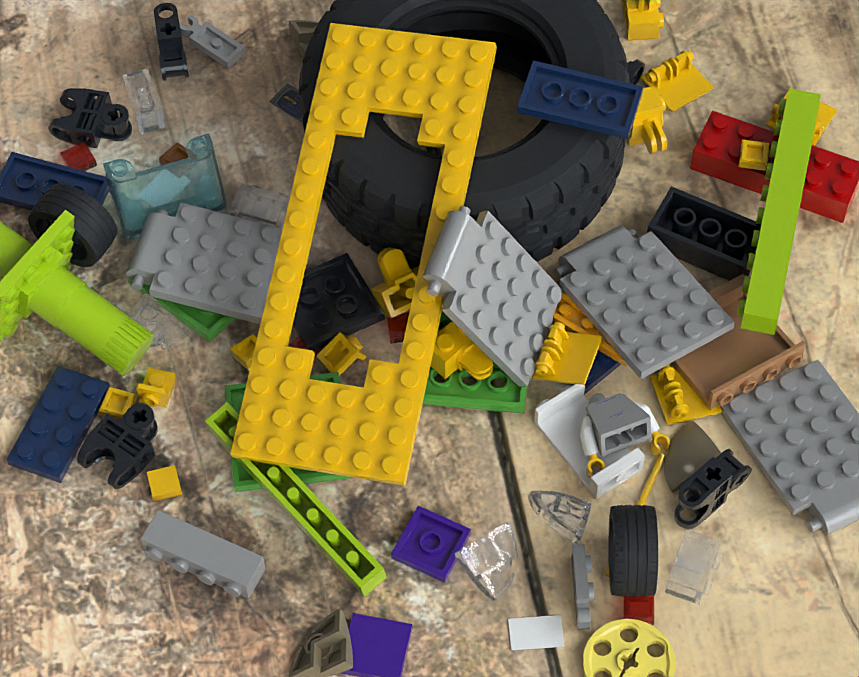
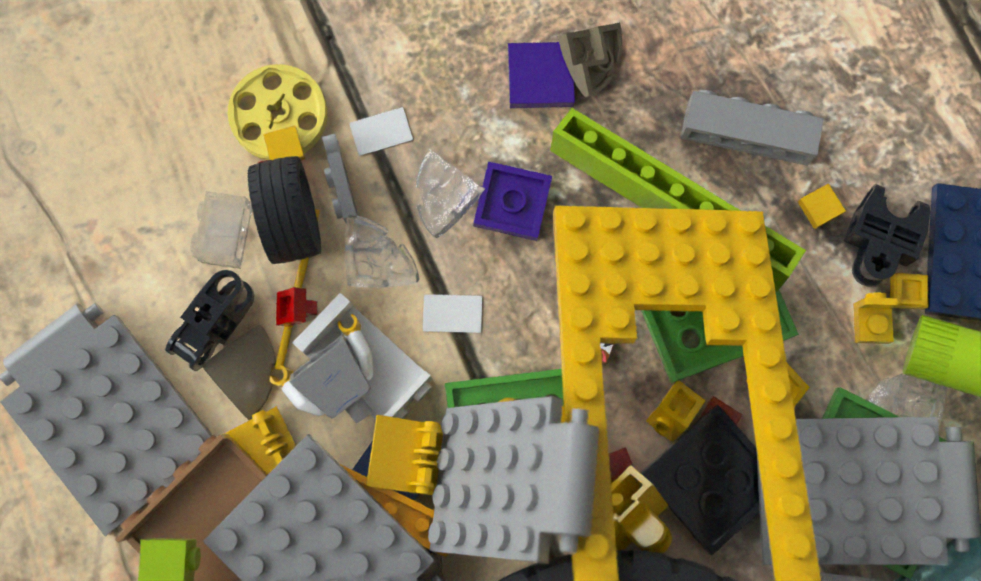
camera: 165 degrees right, 20 degrees up
(505, 468) = (452, 313): none -> white sticker
(626, 621) = (284, 143): none -> yellow tile
(640, 488) = (293, 307): none -> red tile

